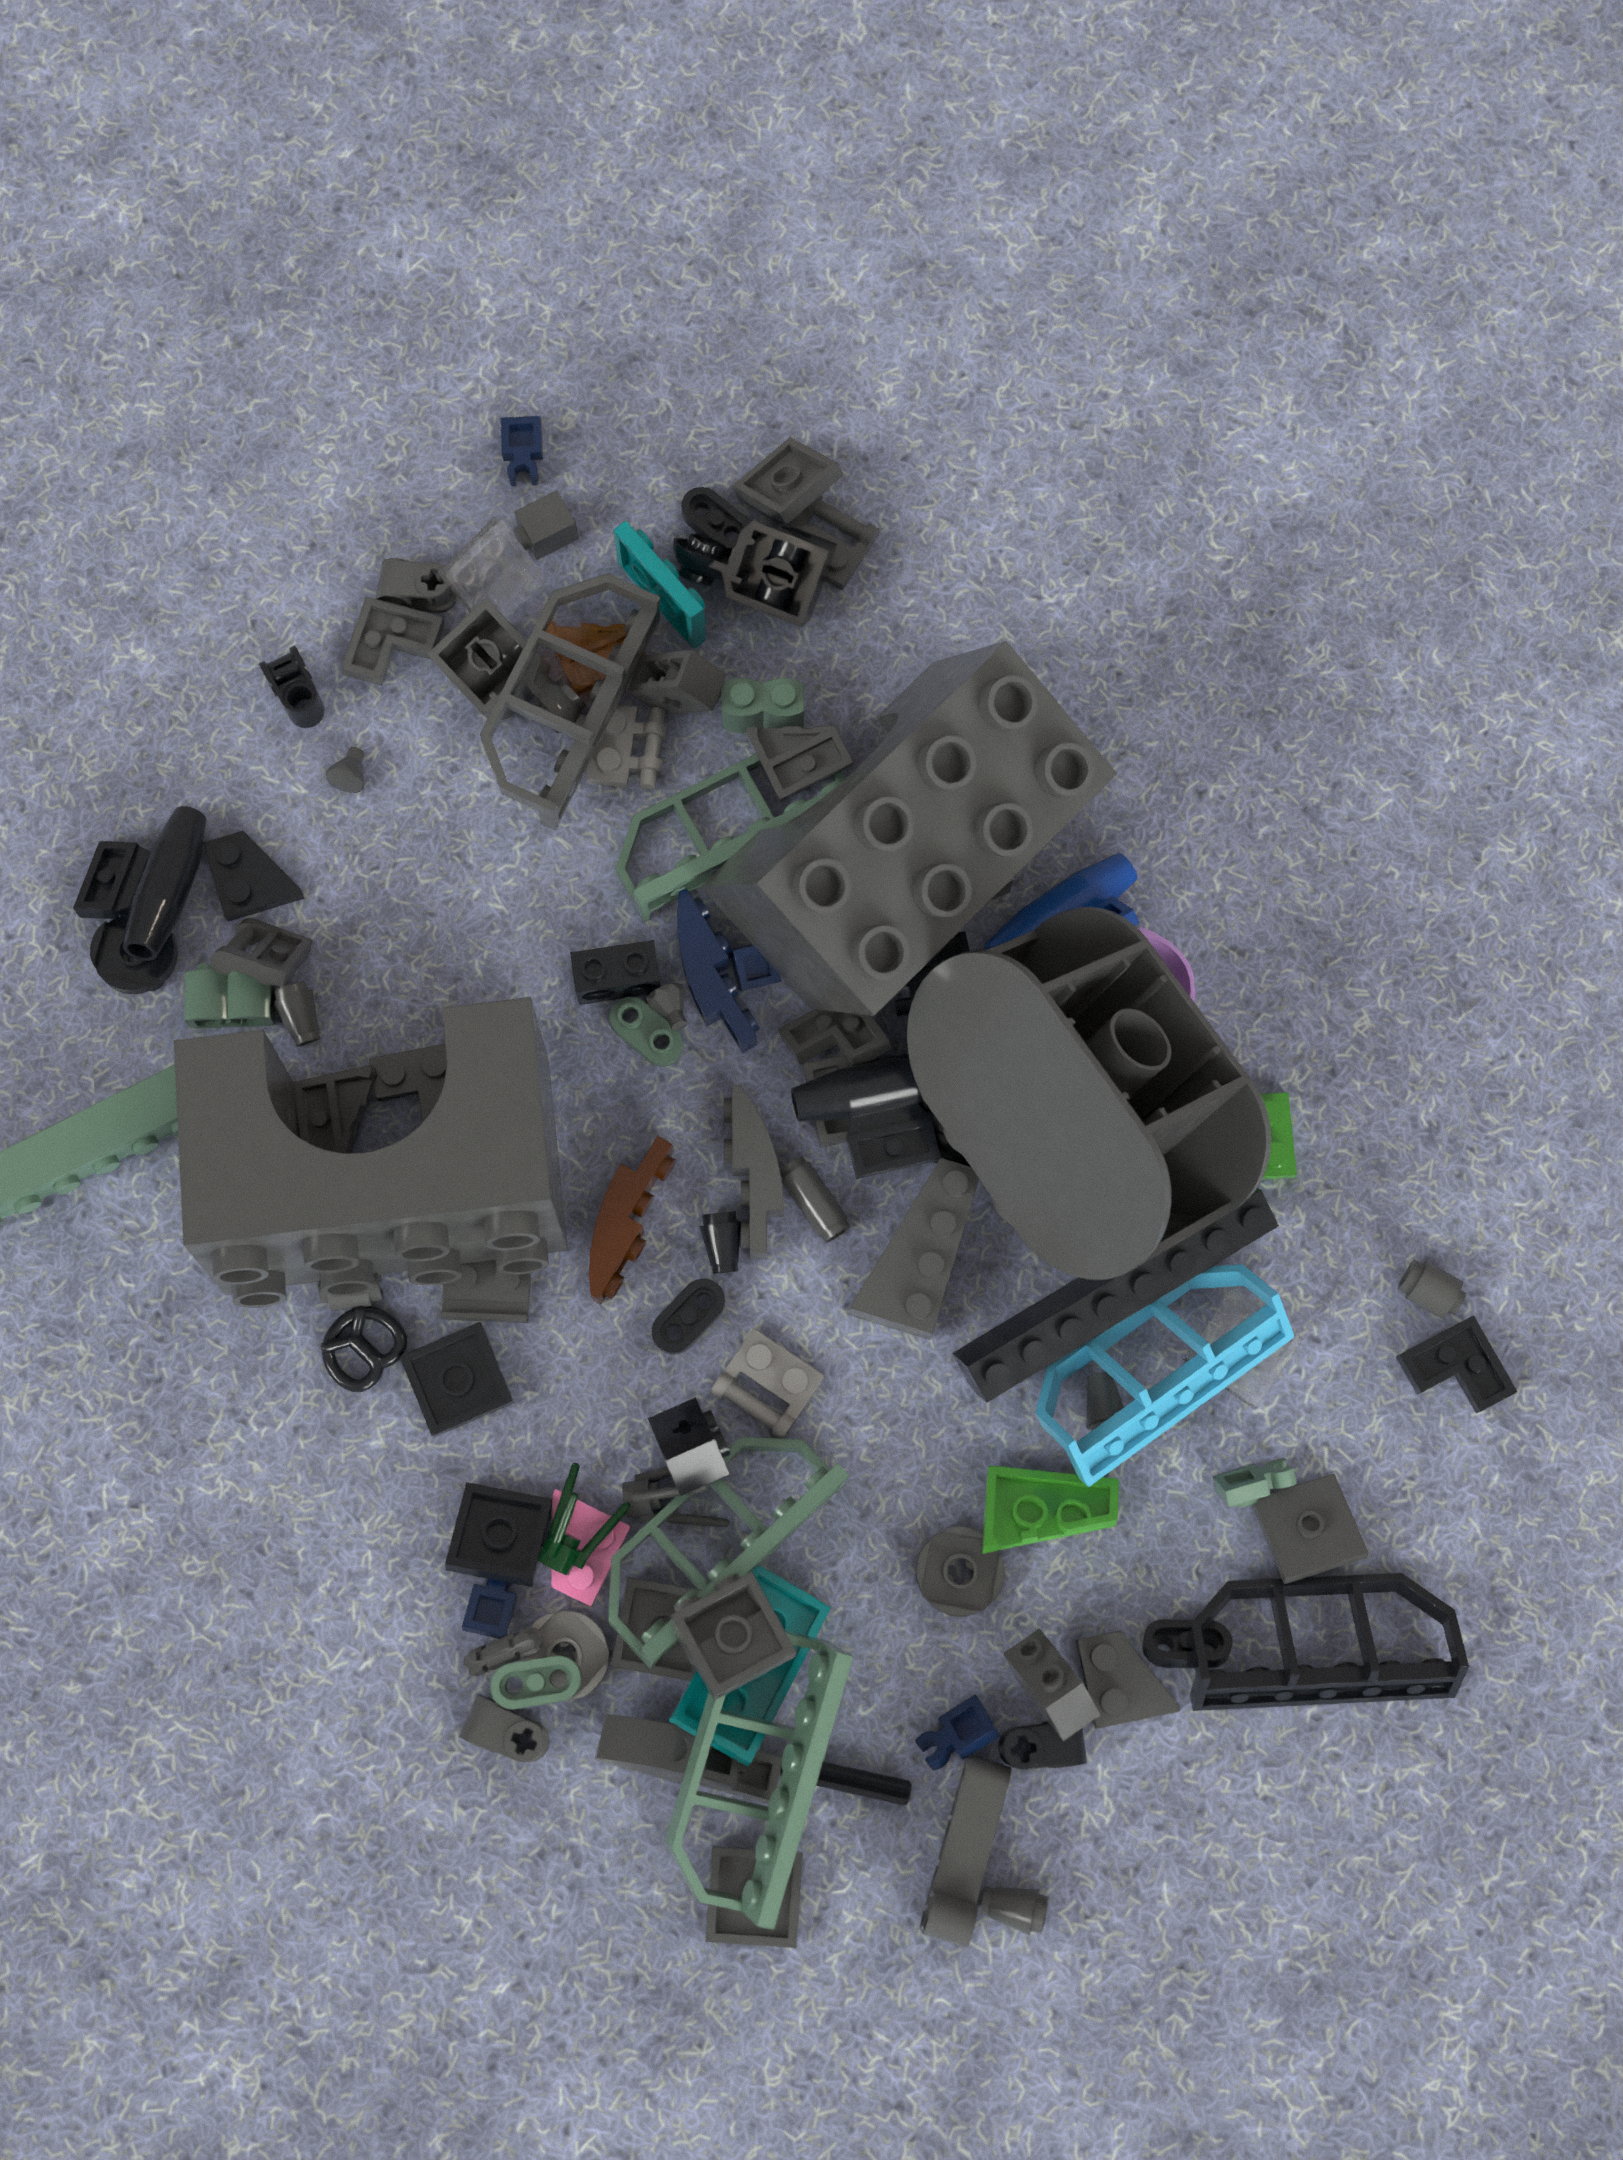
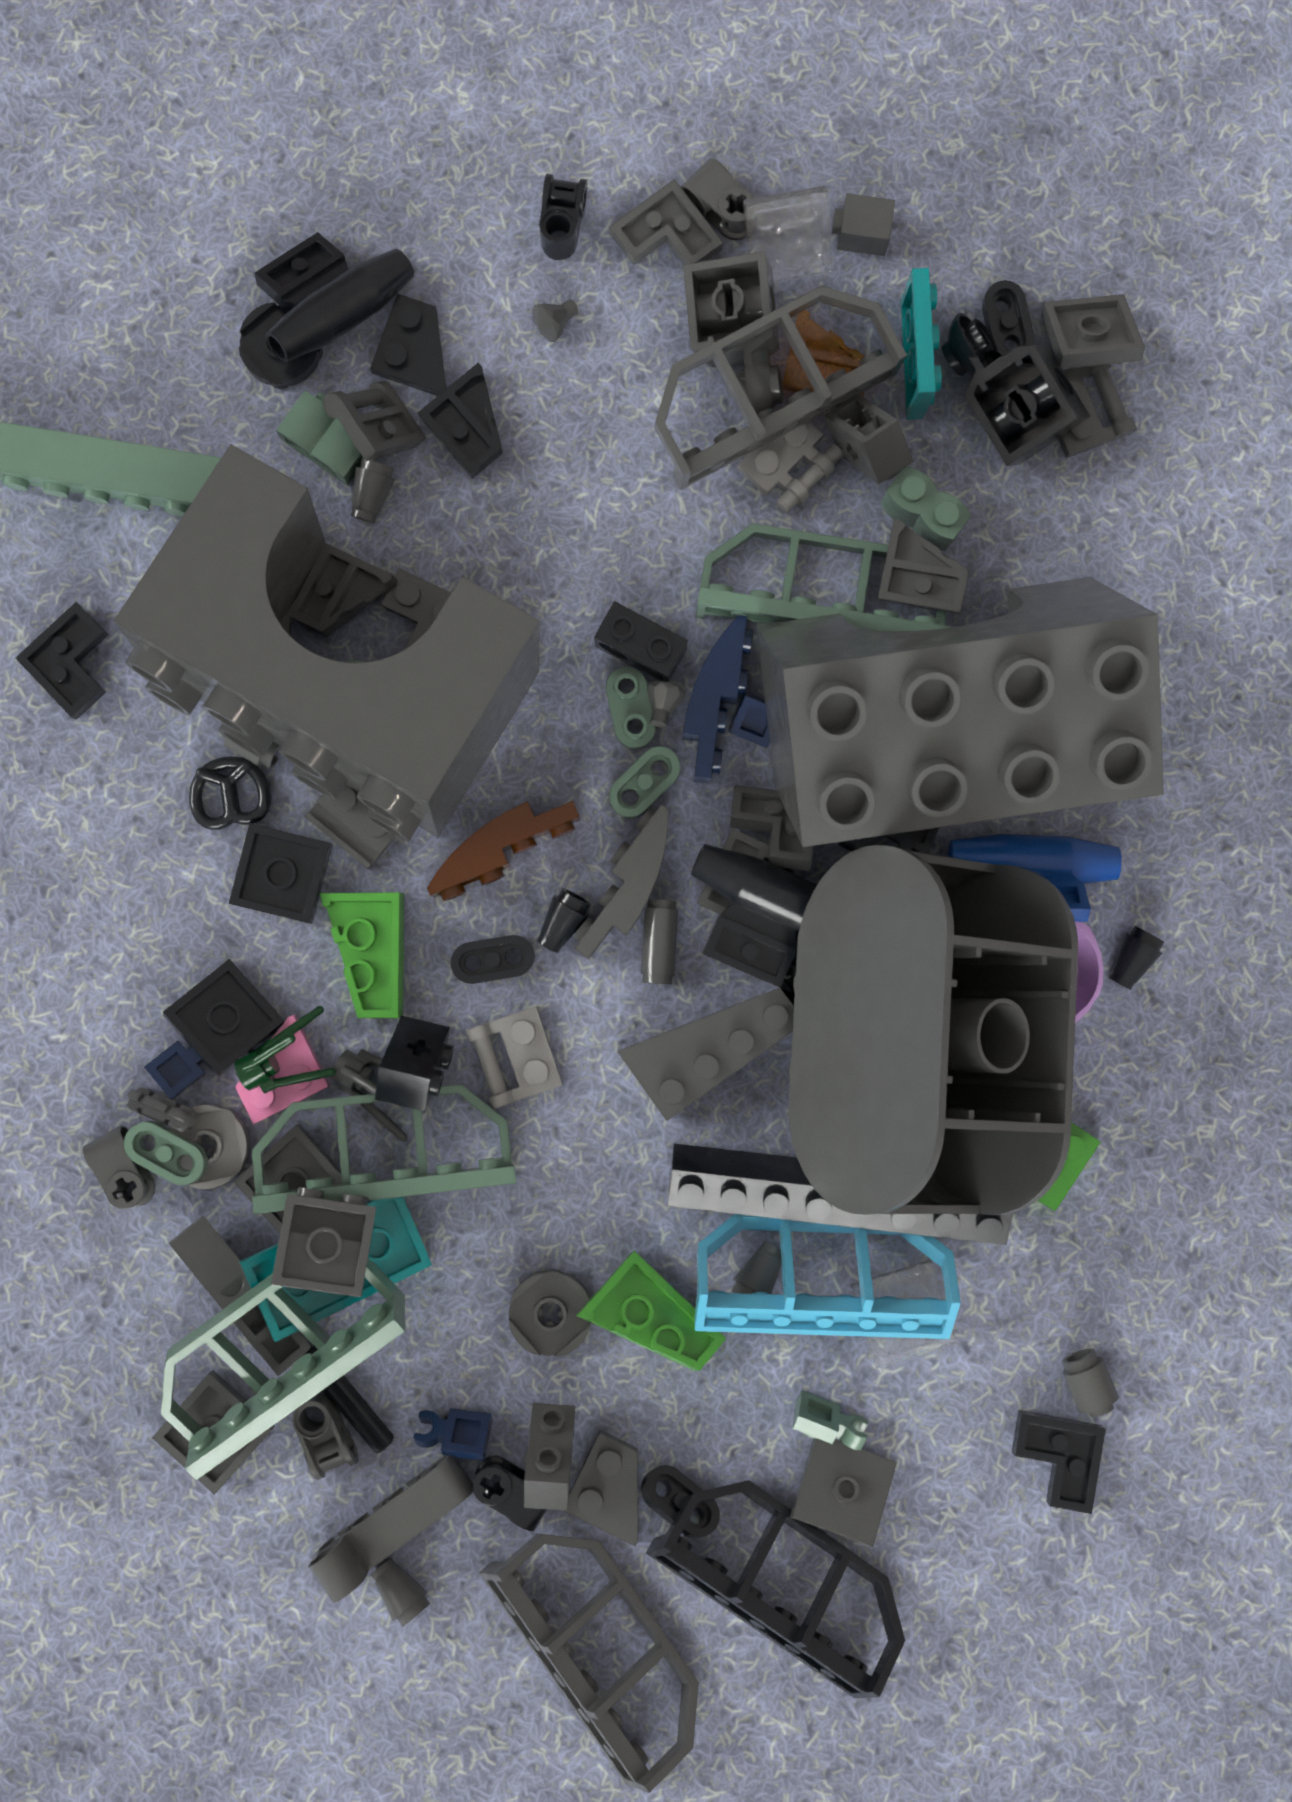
camera: 40 degrees right, 10 degrees up
(130, 1345) = (56, 657): none -> black plate
(337, 903) = (465, 422): none -> black wing
(521, 445) = (897, 139): dark blue plate -> none
(579, 1383) = (372, 949): none -> bright green wing
(703, 1082) = (643, 782): none -> sand green plate
(852, 1825) = (324, 1442): none -> dark grey piece
(1199, 928) = (1135, 957): none -> black cone
(1208, 1865) = (578, 1685): none -> dark grey plate

